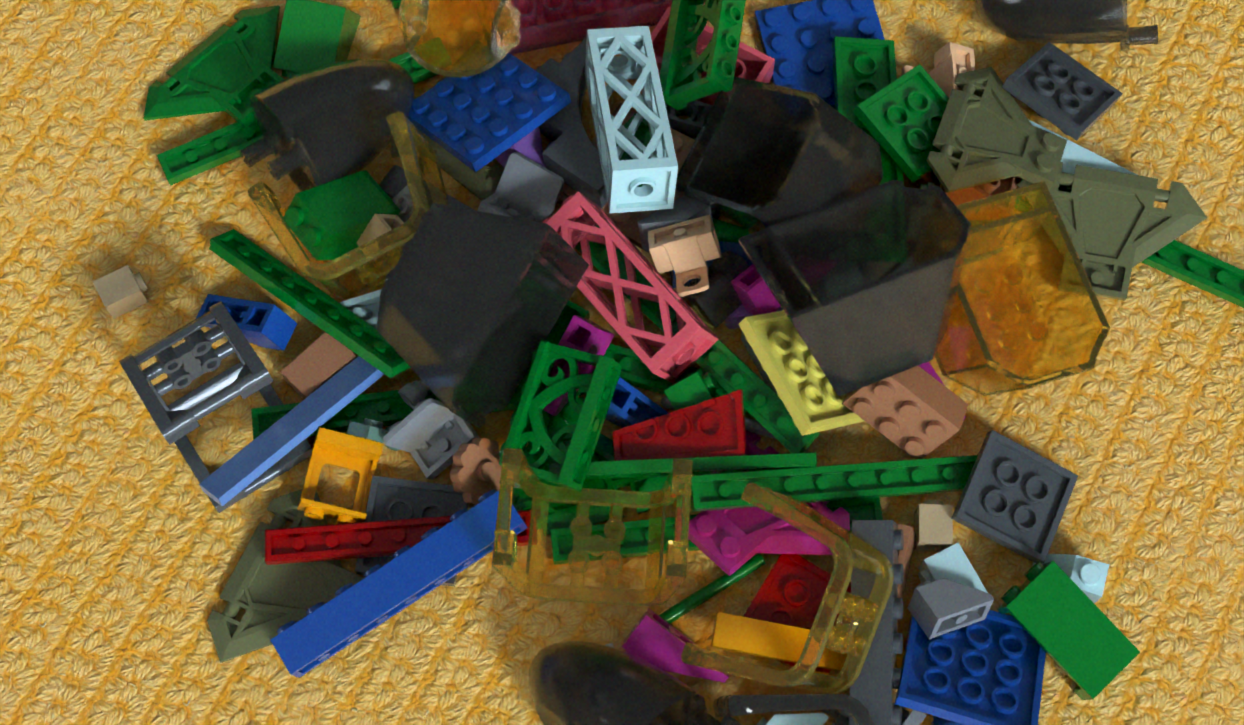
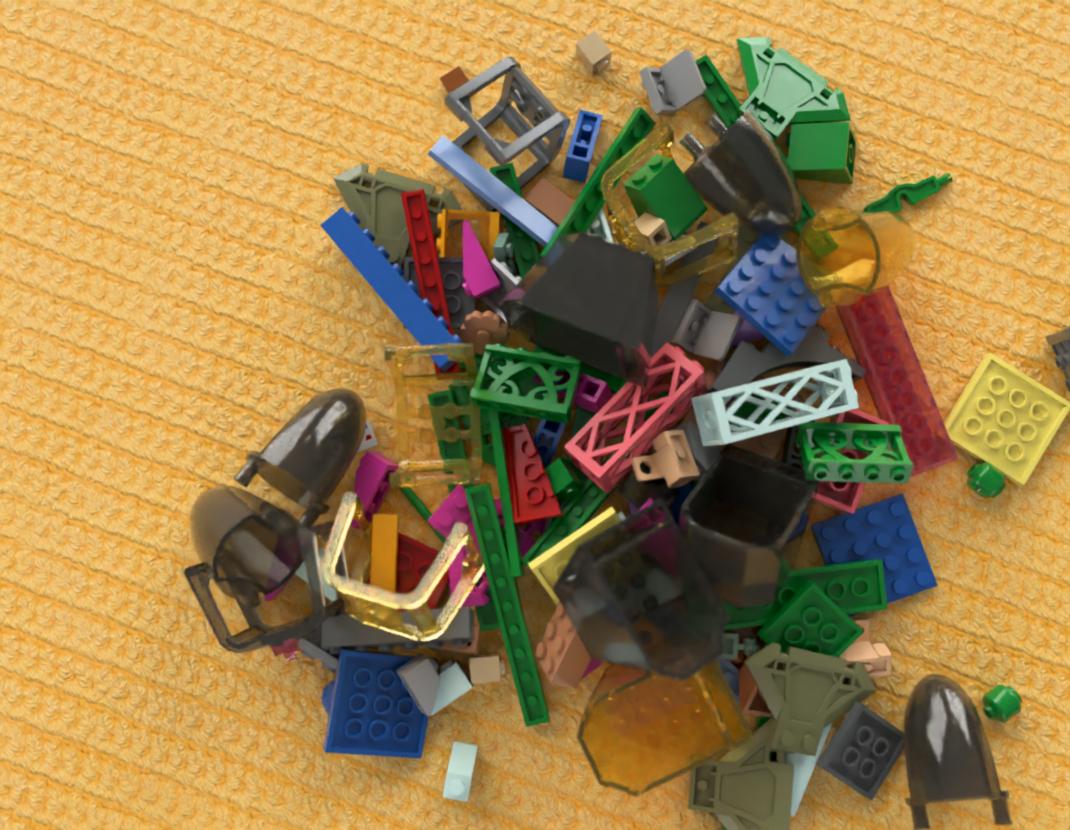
camera: 85 degrees right, 15 degrees up
(119, 477) = (453, 79): none -> dark orange tile
(187, 195) = (673, 84): none -> light grey bracket
(390, 470) = (477, 271): none -> dark pink slope
(1015, 497) = (513, 728): dark grey plate -> none
(1069, 628) = (417, 772): green panel -> none

